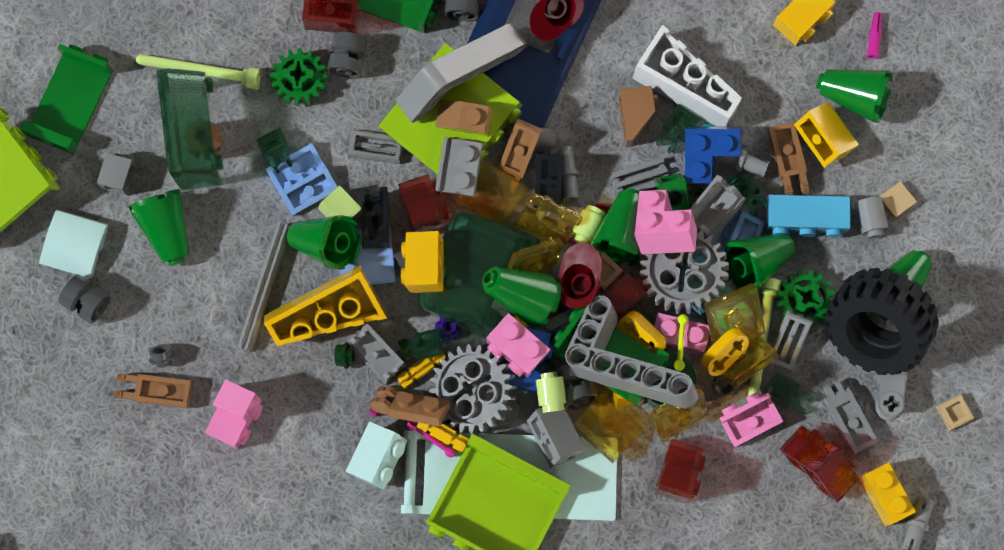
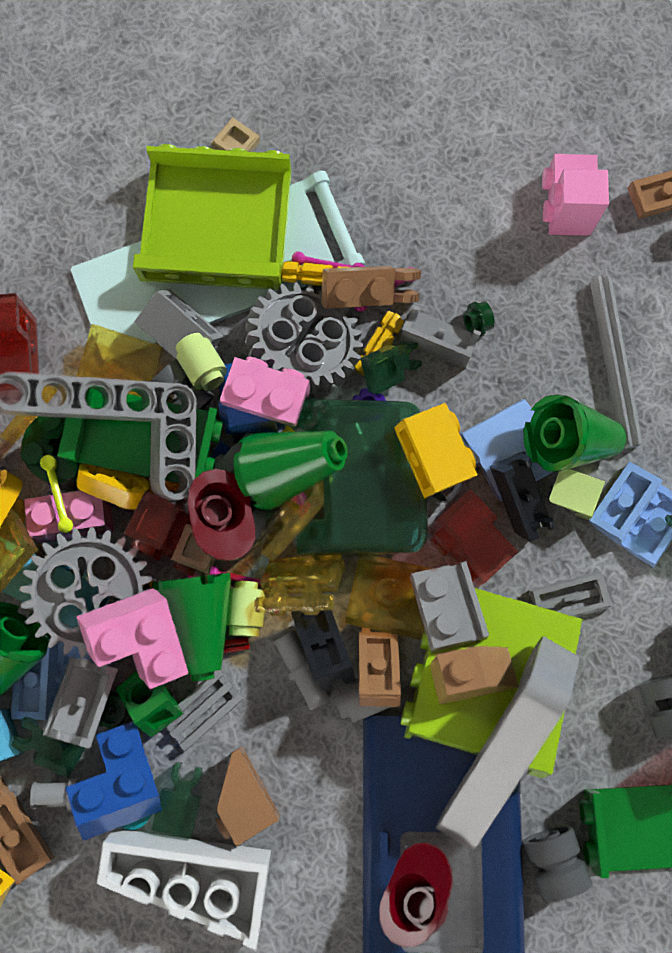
camera: 155 degrees right, 0 degrees up
(332, 306) = (528, 357): yellow wedge -> none
(376, 455) = (383, 215): light aqua brick -> none

